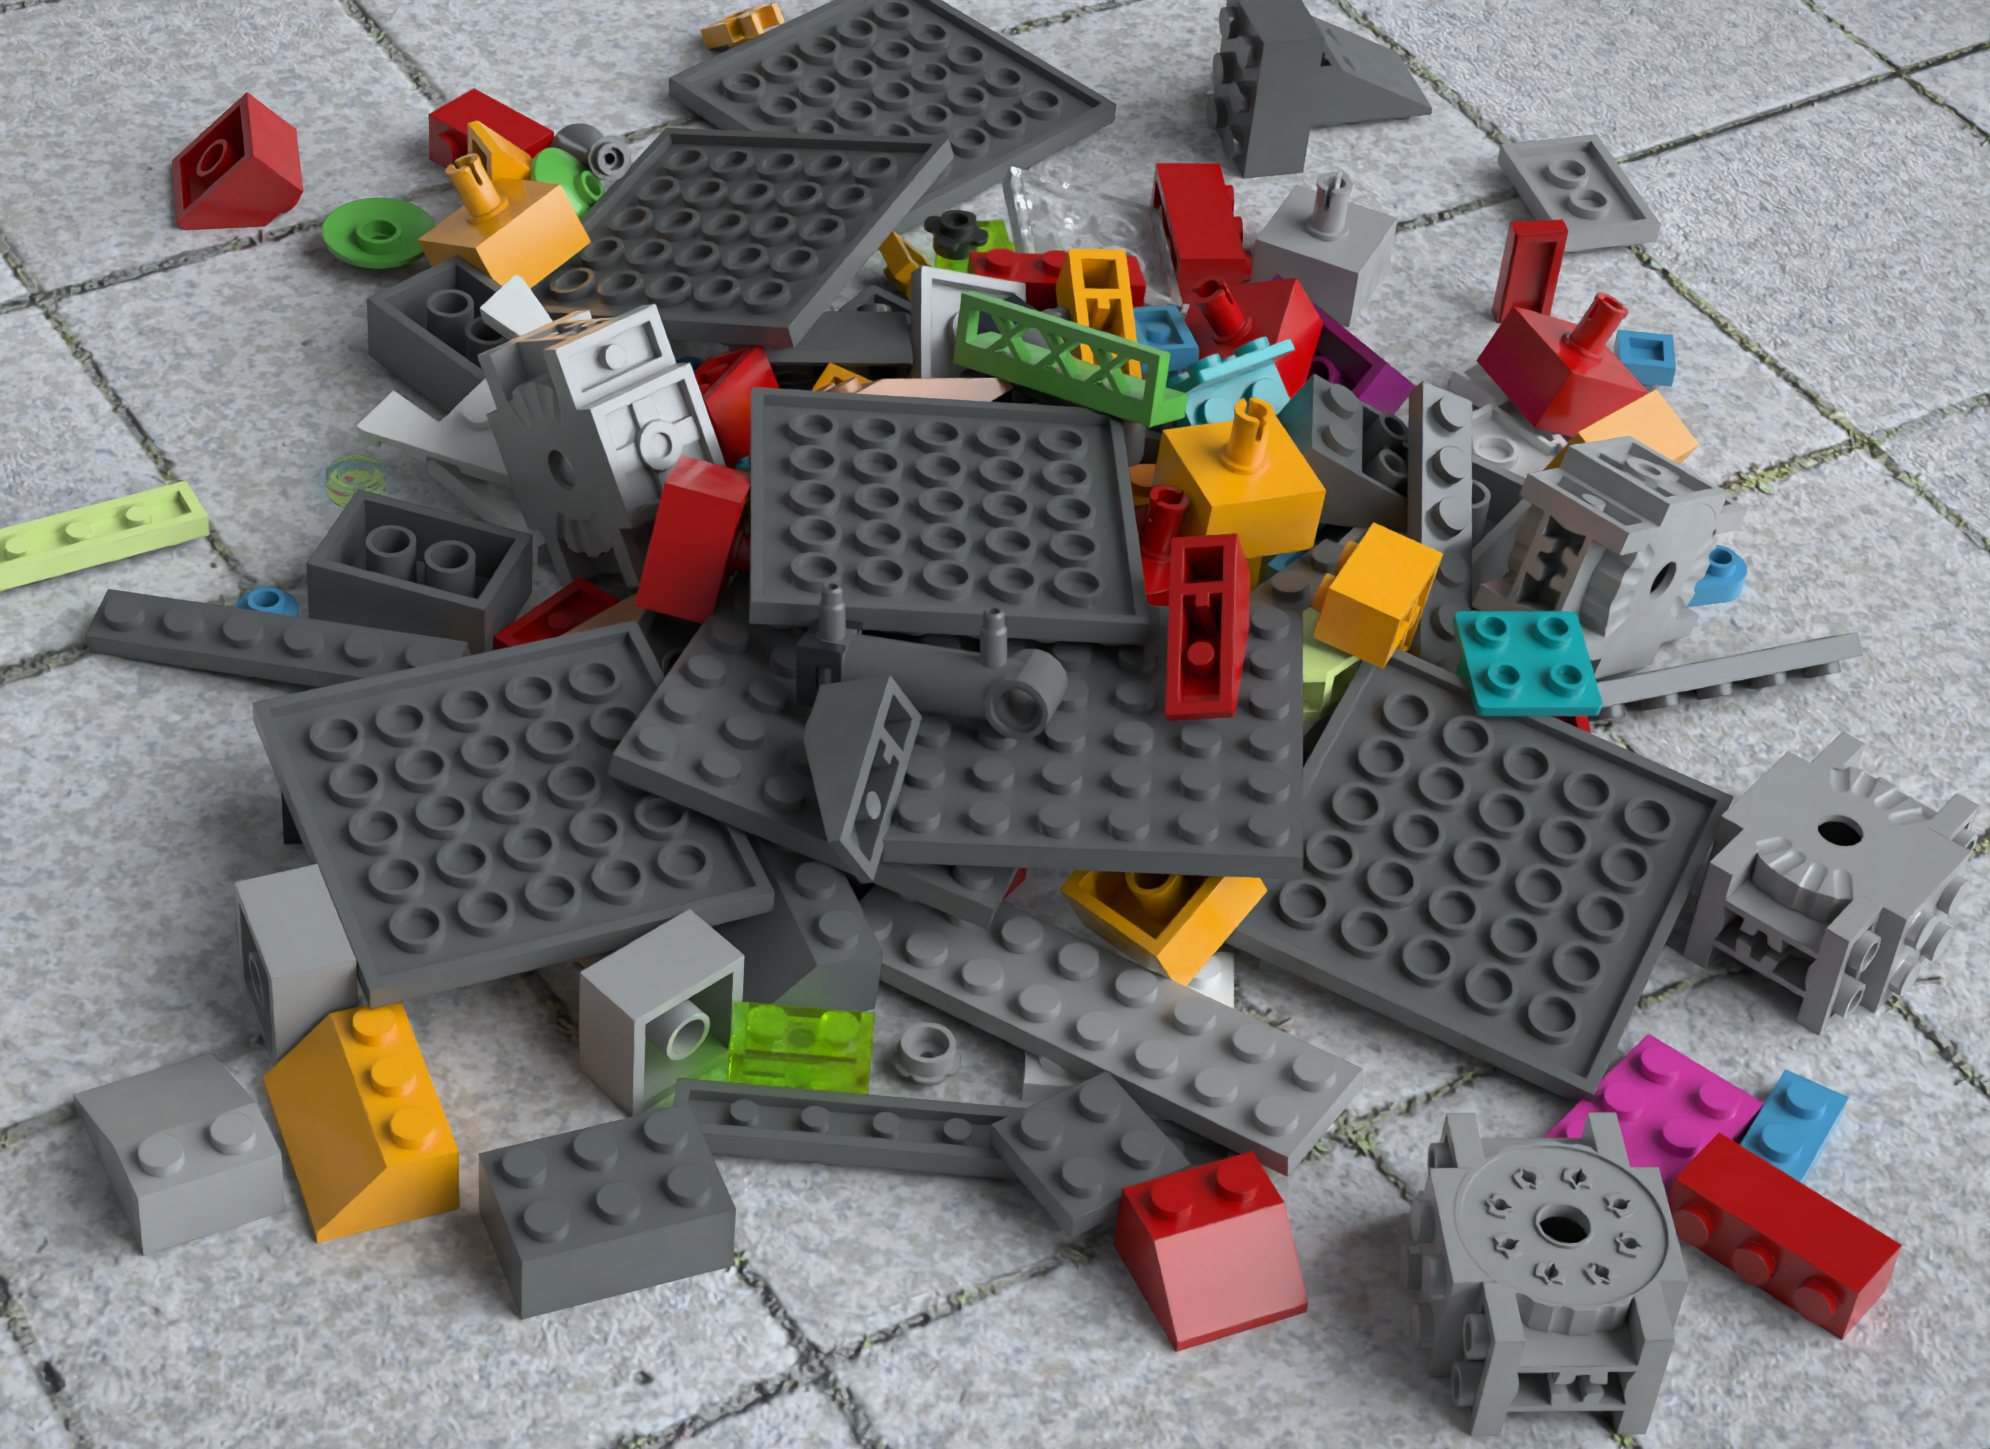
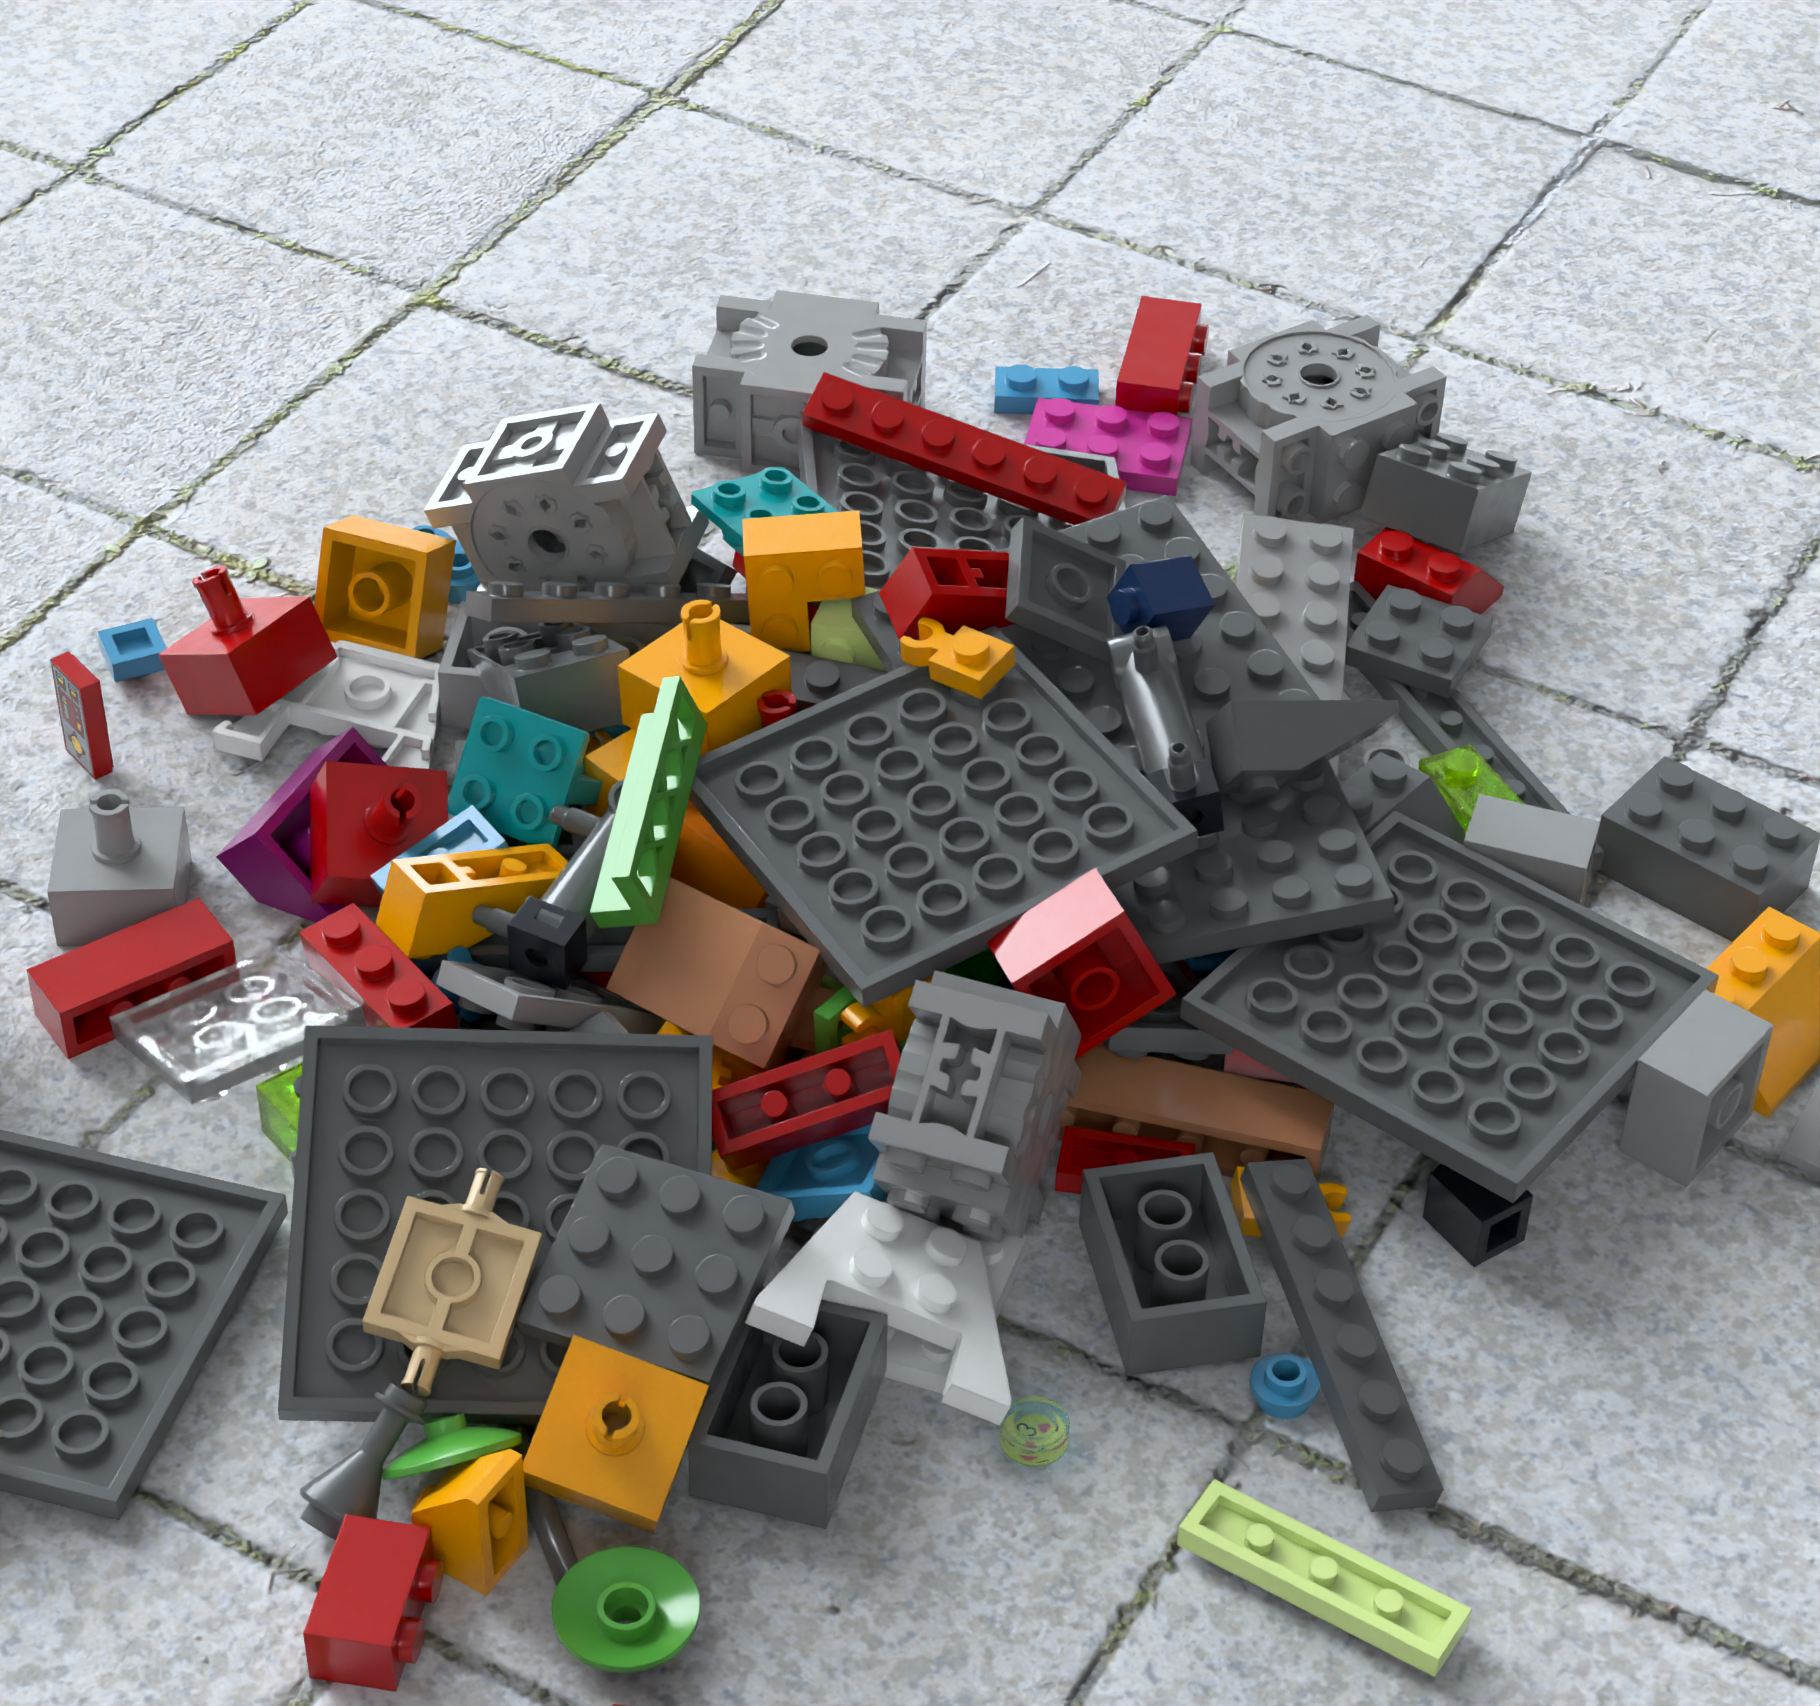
camera: 115 degrees left, 0 degrees up
(608, 262) = (657, 1264): none -> dark grey plate
(678, 180) = (452, 1282): none -> tan plate
(1086, 717) = (1161, 594): none -> dark blue brick
(1104, 575) = (962, 660): none -> light orange plate
(1153, 668) = (1061, 588): none -> dark grey plate
(1315, 1291) = (1446, 492): none -> dark grey brick
(1580, 882) = (961, 452): none -> red plate

